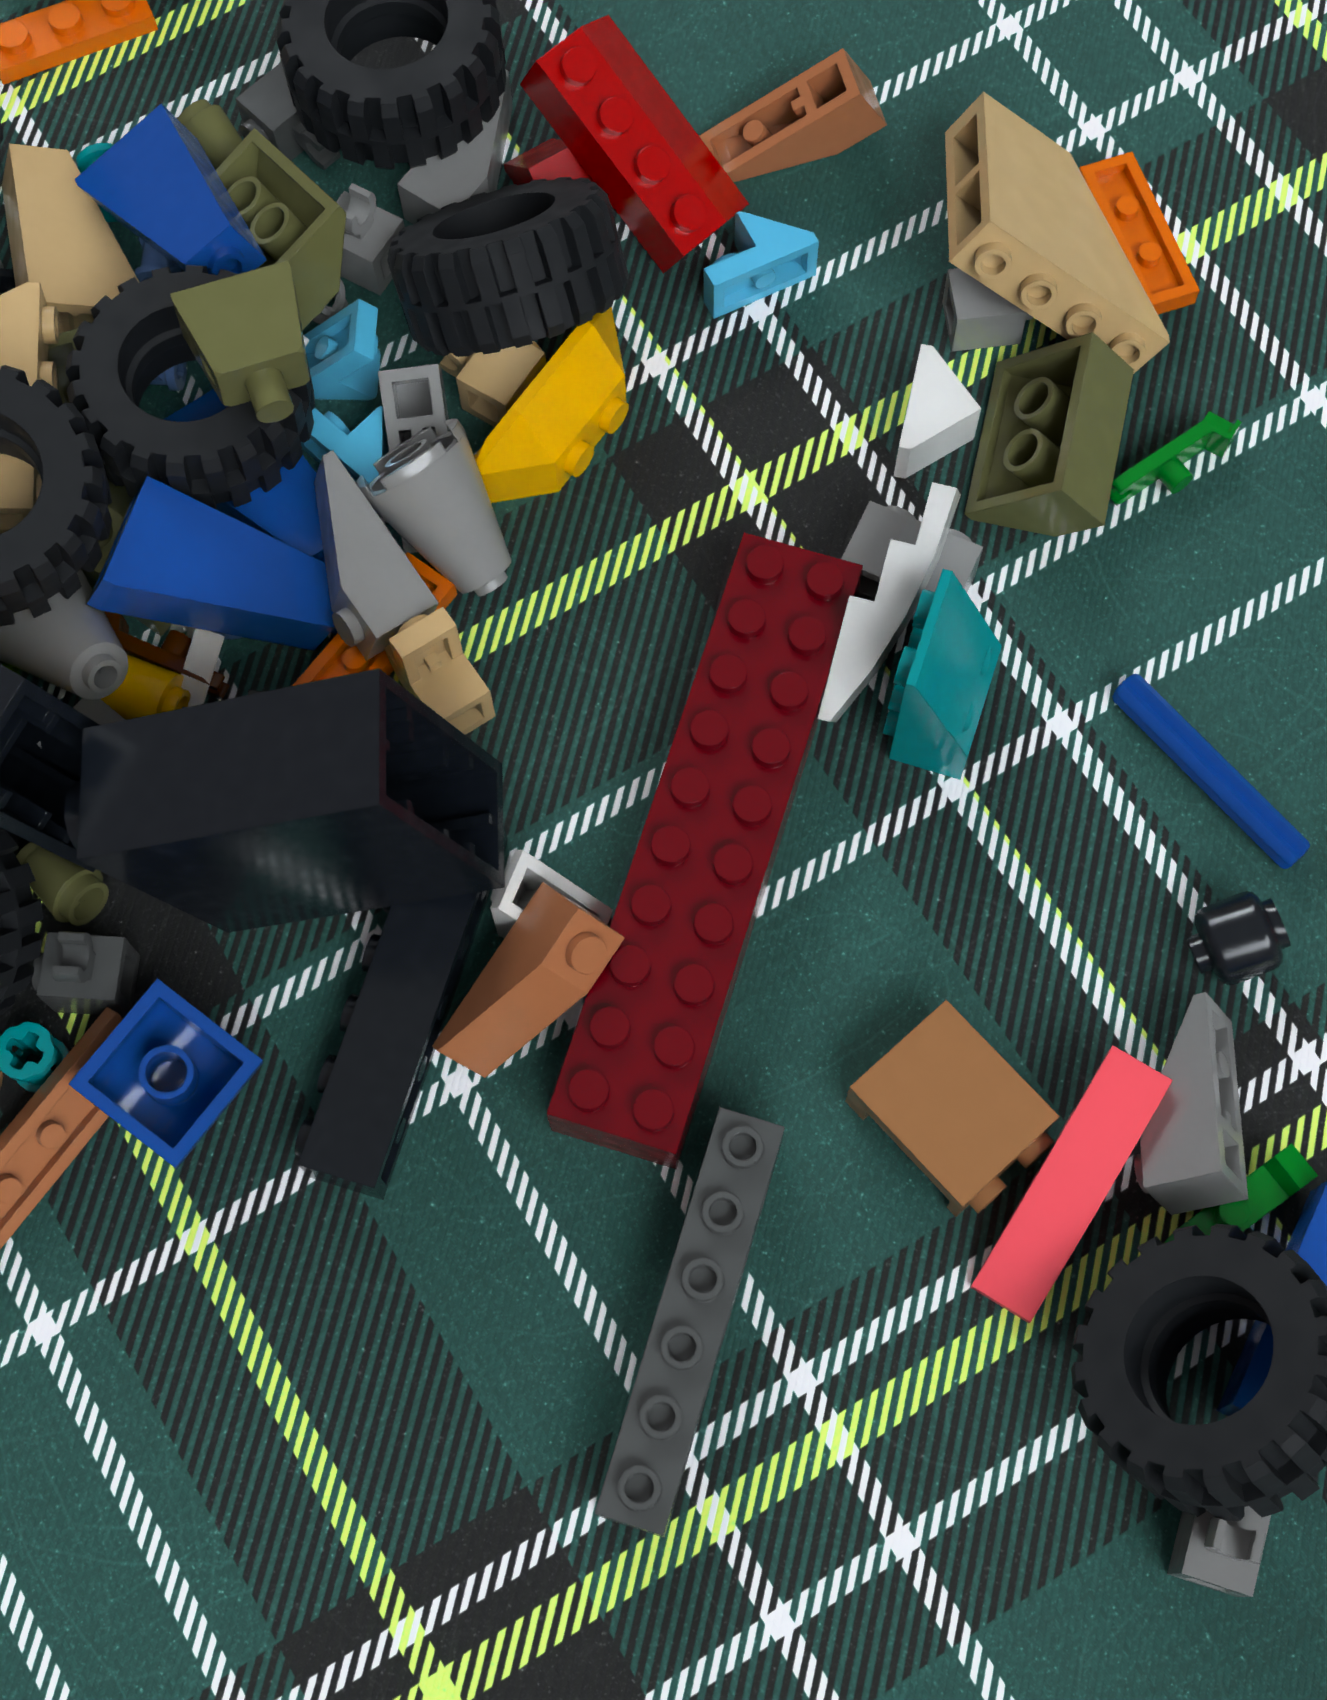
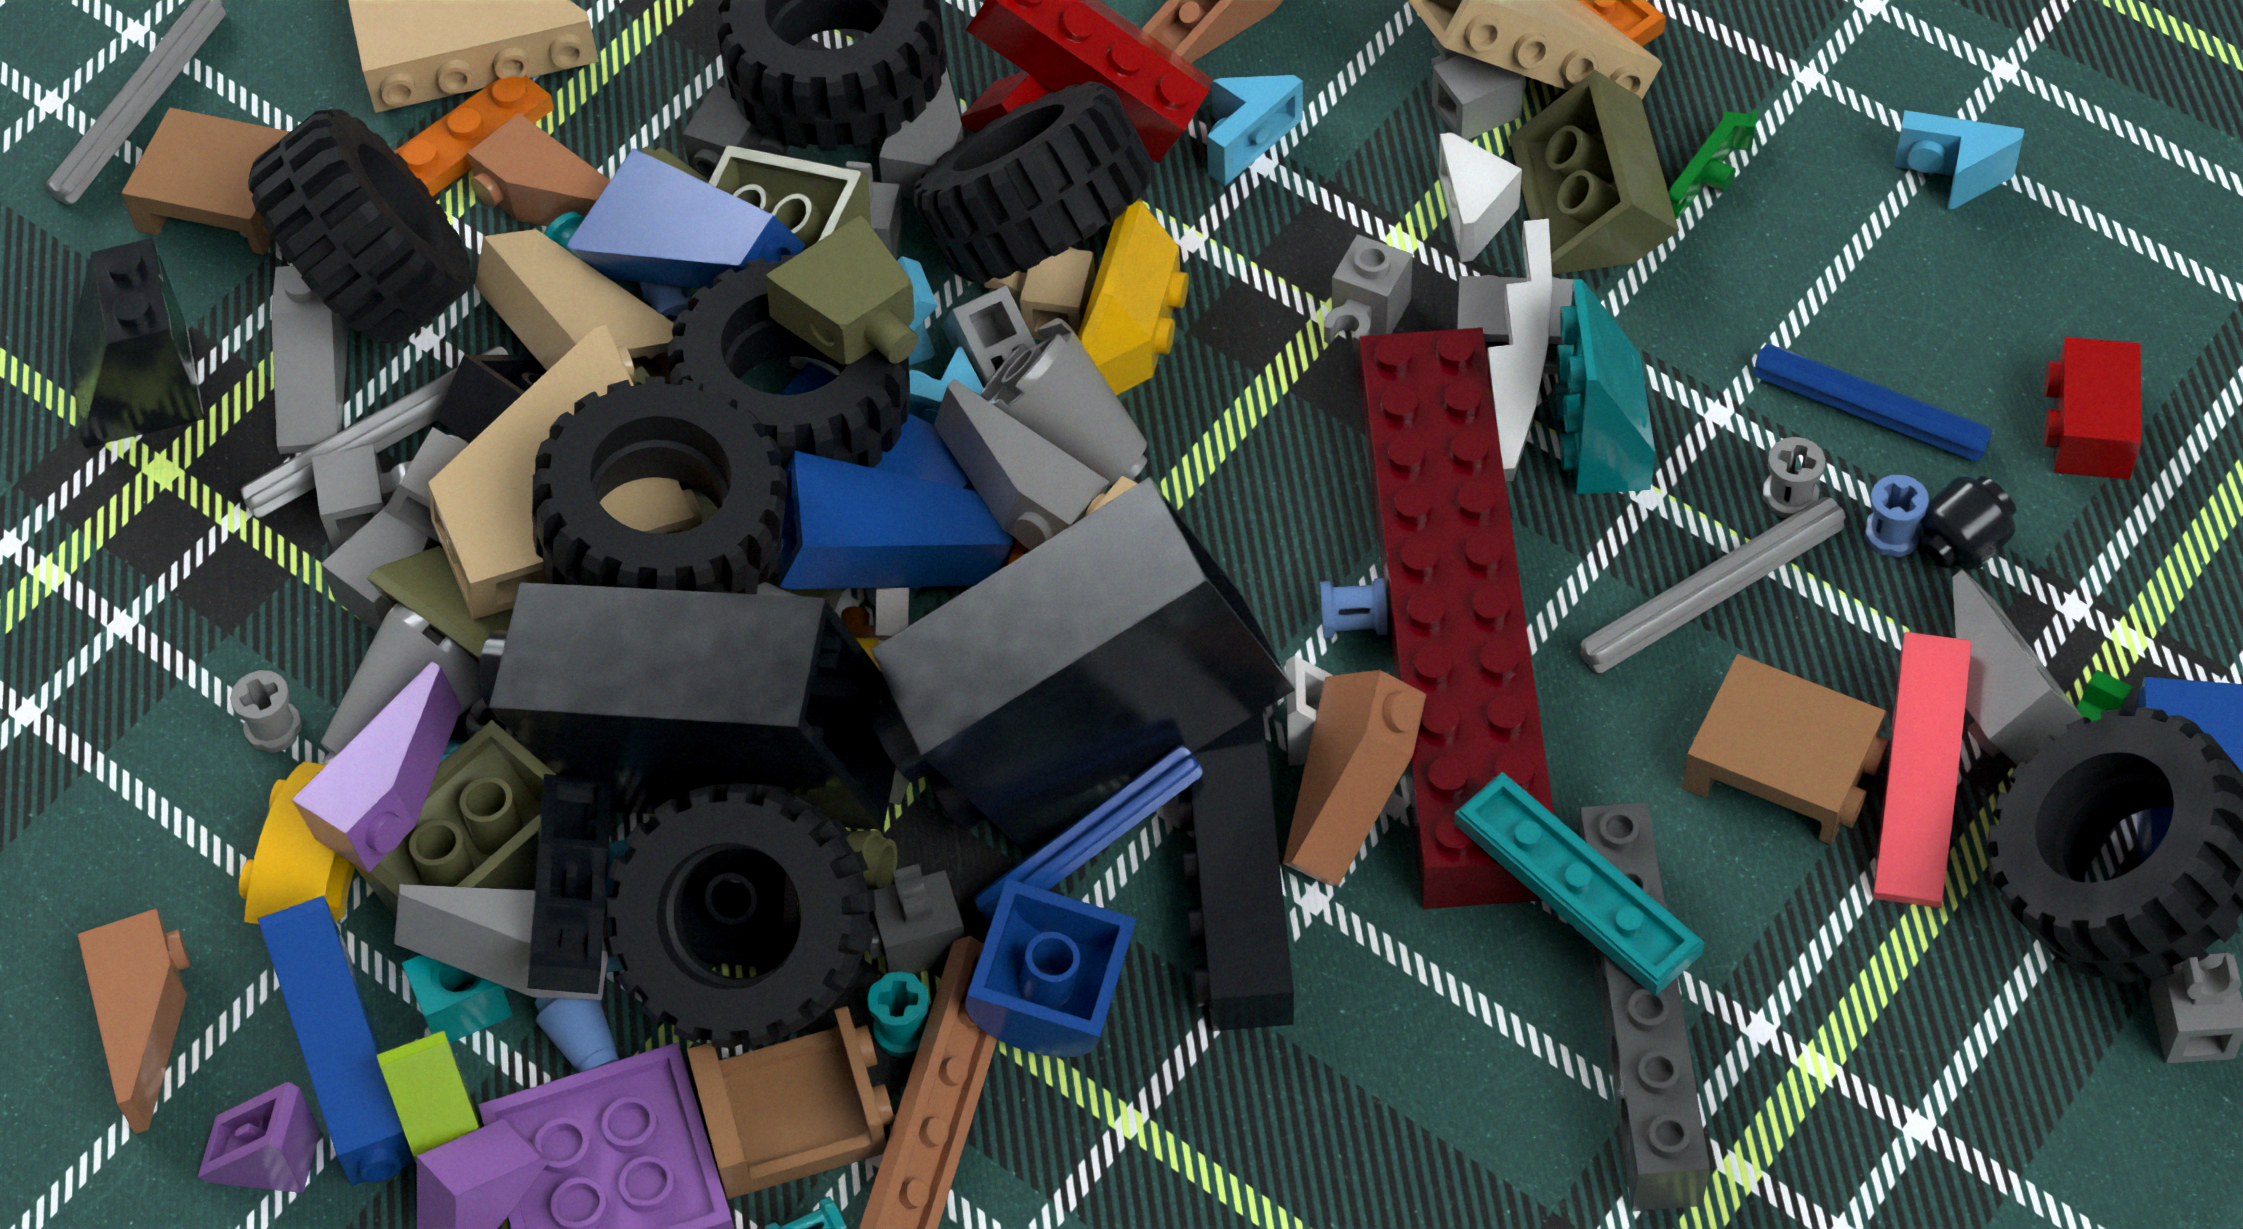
camera: 20 degrees left, 15 degrees down
(92, 87) = (532, 174): none -> nougat slope
(275, 947) = (1098, 826): none -> blue axle
(618, 802) = (1338, 600): none -> medium blue bush
(673, 1196) = (1579, 884): none -> teal tile
(782, 484) = (1369, 290): none -> light grey brick
(969, 905) = (1712, 585): none -> light grey axle
(1083, 812) = (1782, 467): none -> light grey bush
(1181, 886) = (1897, 507): none -> medium blue bush

